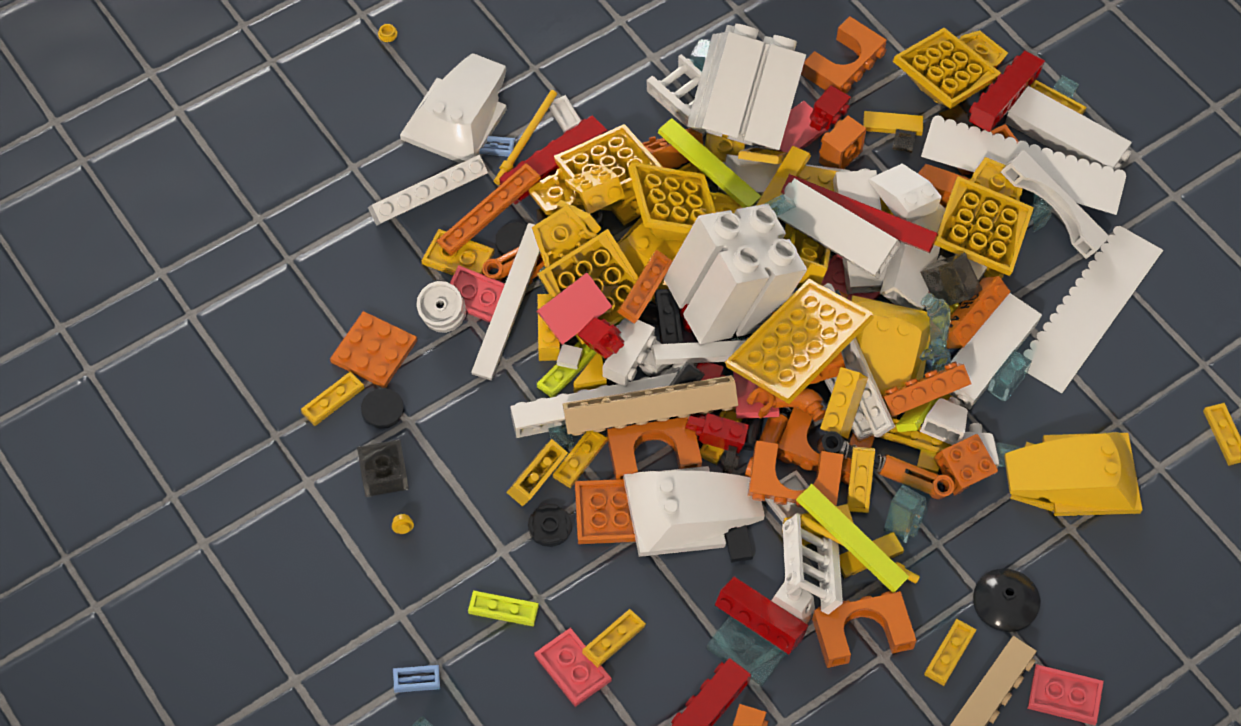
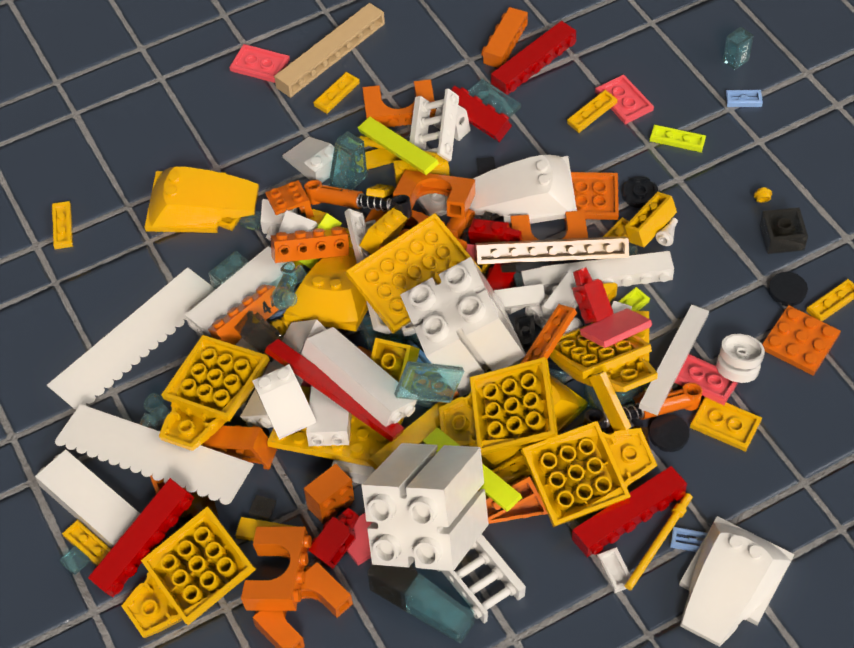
camera: 170 degrees left, 5 degrees down
(427, 190) = (760, 480): white brick -> none
(488, 209) = (696, 451): orange tile -> none
(517, 464) = (666, 235): none -> white cone
(597, 188) = (592, 433): yellow bracket -> none
(864, 93) = (284, 591): none -> orange arch
(954, 540) = (312, 158): none -> white slope
(1005, 611) = (283, 123): black dish -> none
(1083, 230) = (156, 421): white arch -> none

